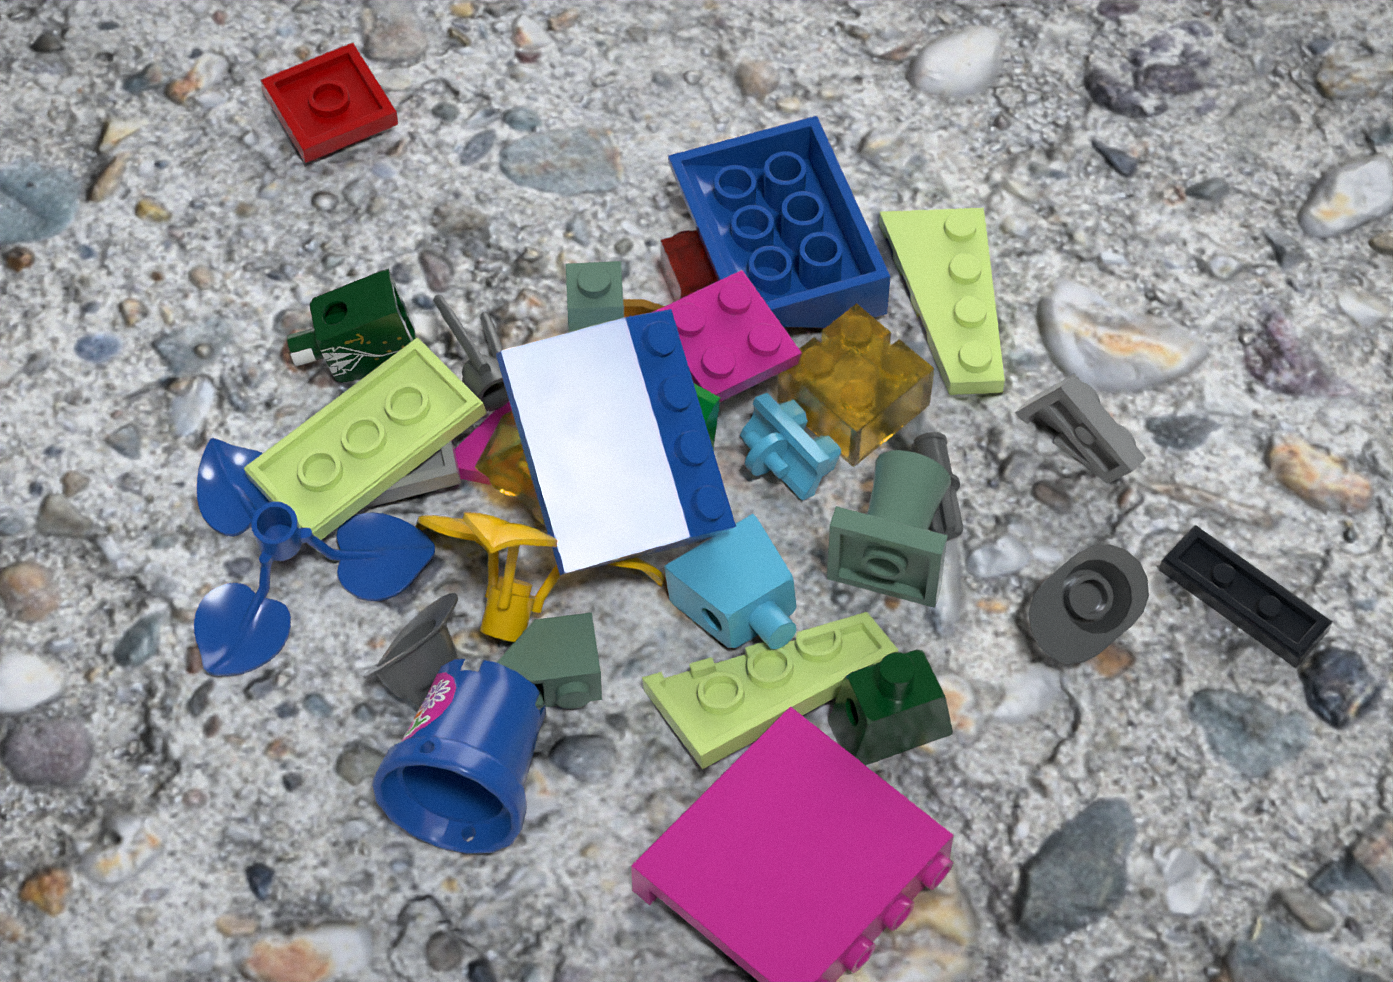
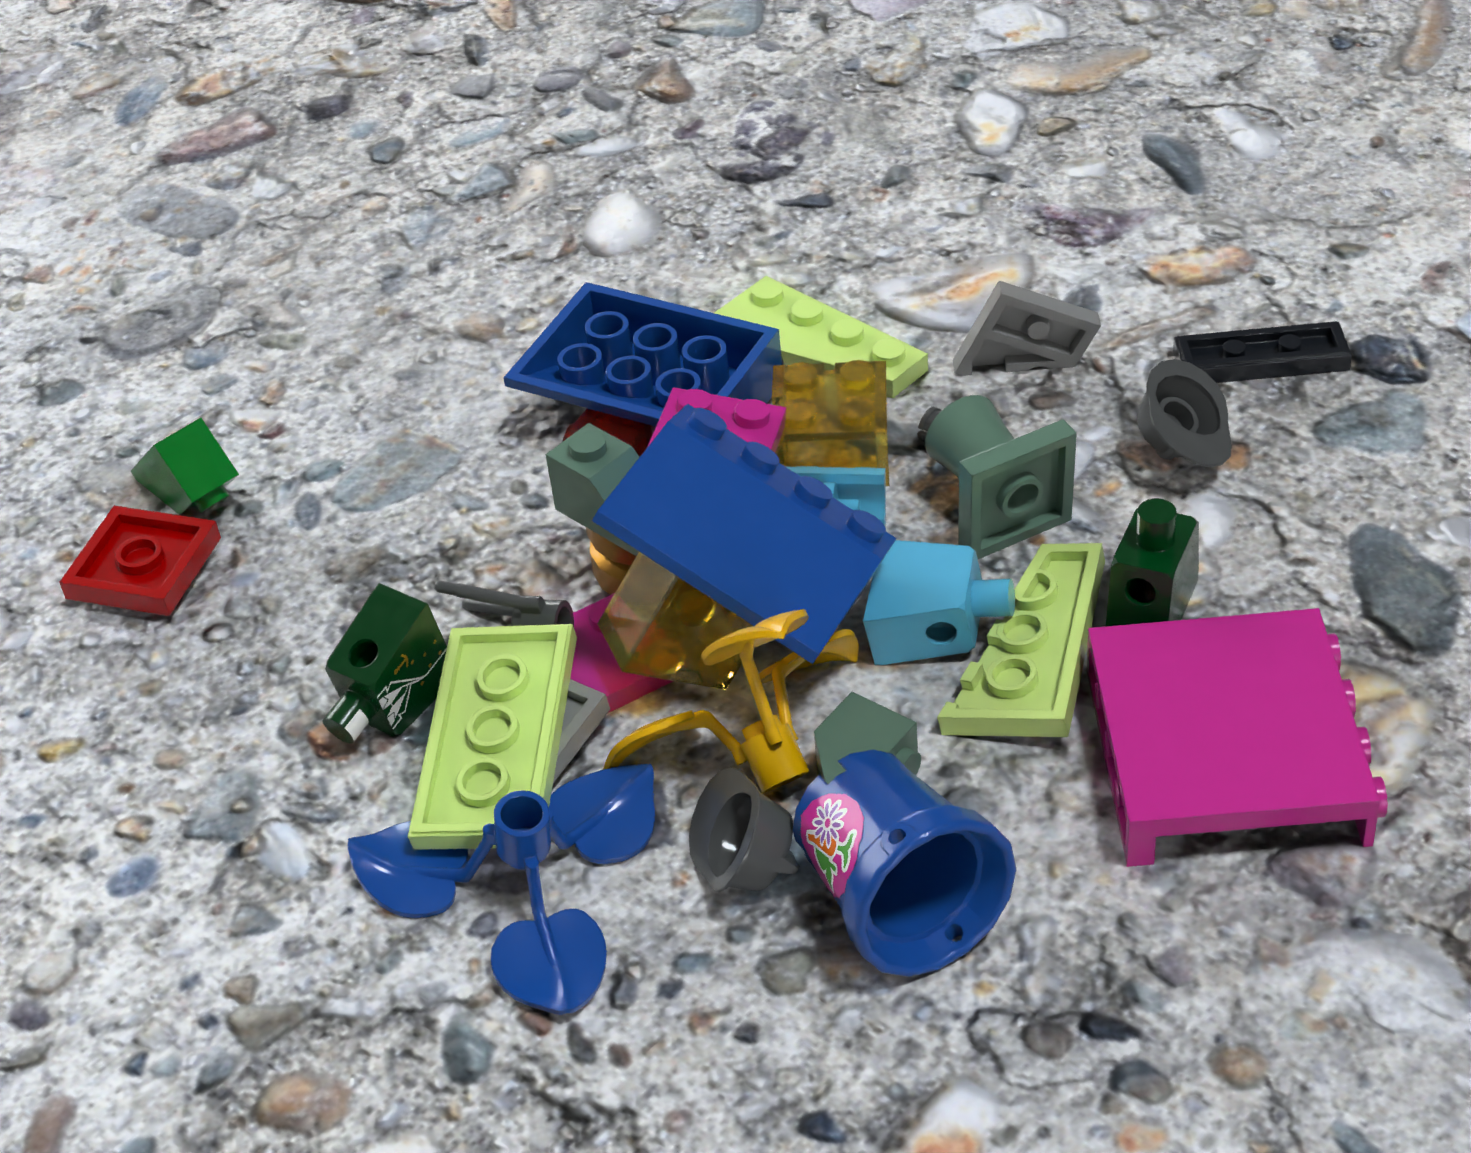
camera: 40 degrees left, 15 degrees down
(424, 51) = (187, 469): none -> green slope

